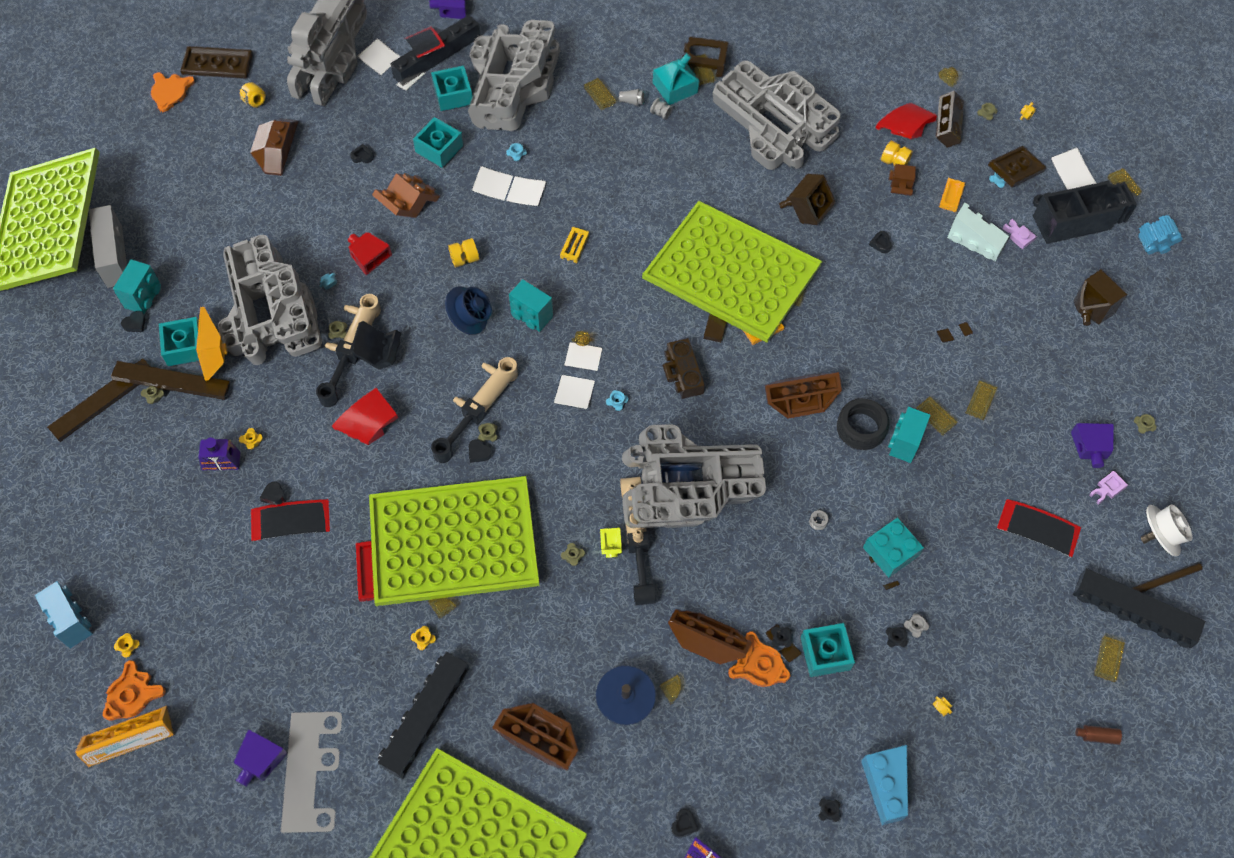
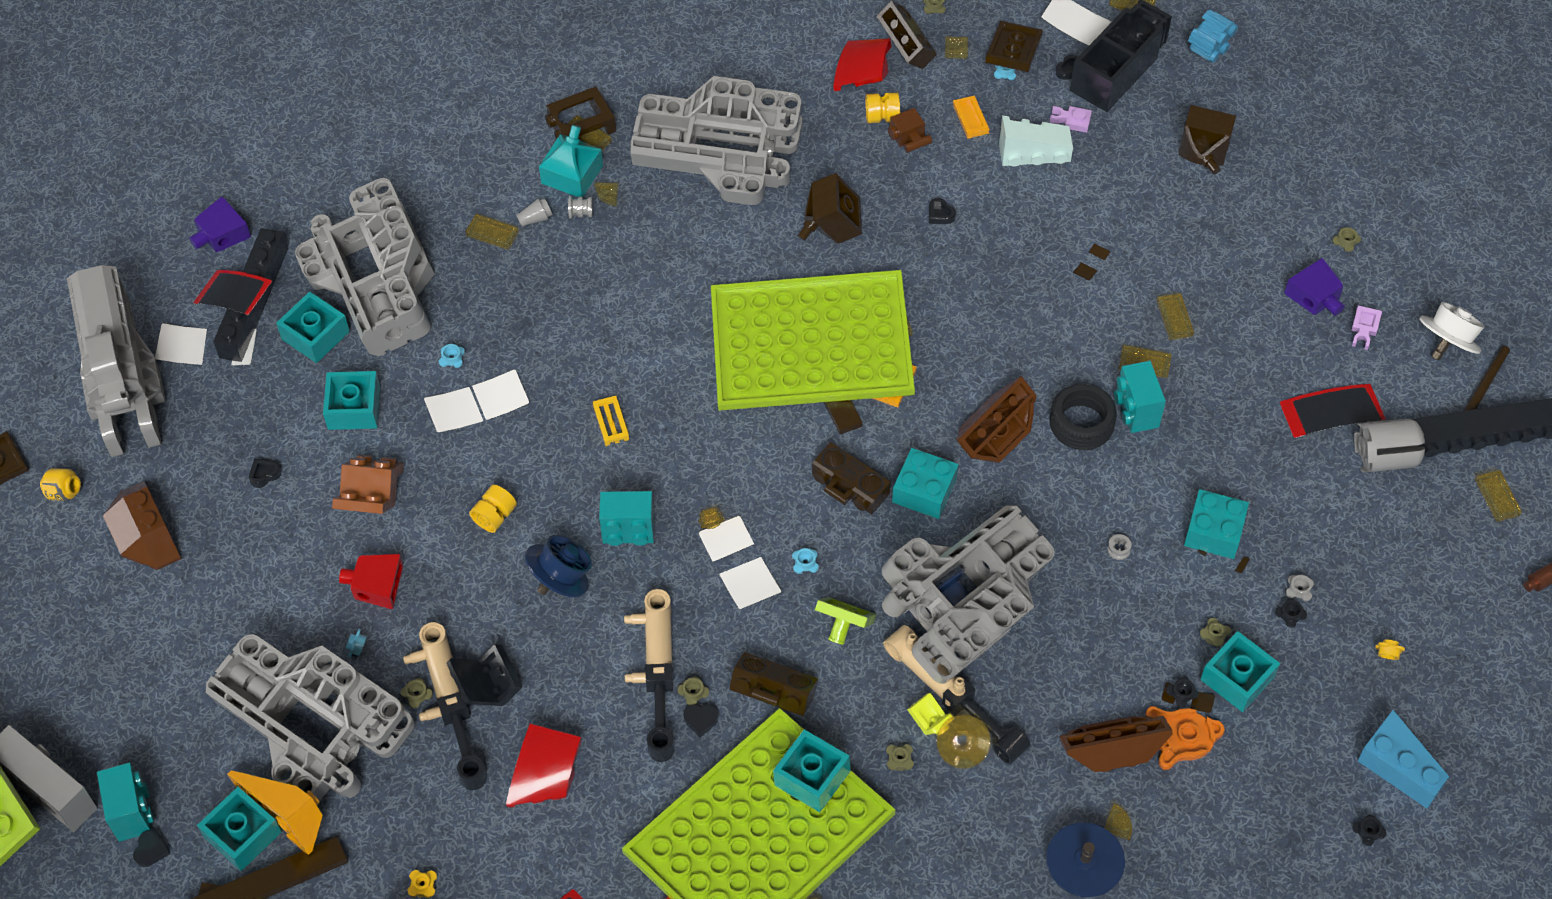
camera: 35 degrees left, 5 degrees down
(506, 524) = (812, 770): none -> teal brick
(533, 459) = (773, 684): none -> dark brown piece
(608, 575) = (972, 751): none -> clear yellow dish
(609, 446) = (844, 616): none -> lime tile
(686, 110) = (607, 192): none -> clear yellow tile
(727, 400) = (925, 483): none -> teal brick
(832, 620) = (1215, 639): none -> olive plate
(979, 146) = (956, 47): none -> clear yellow tile
(1056, 575) = (1389, 445): none -> light grey cylinder

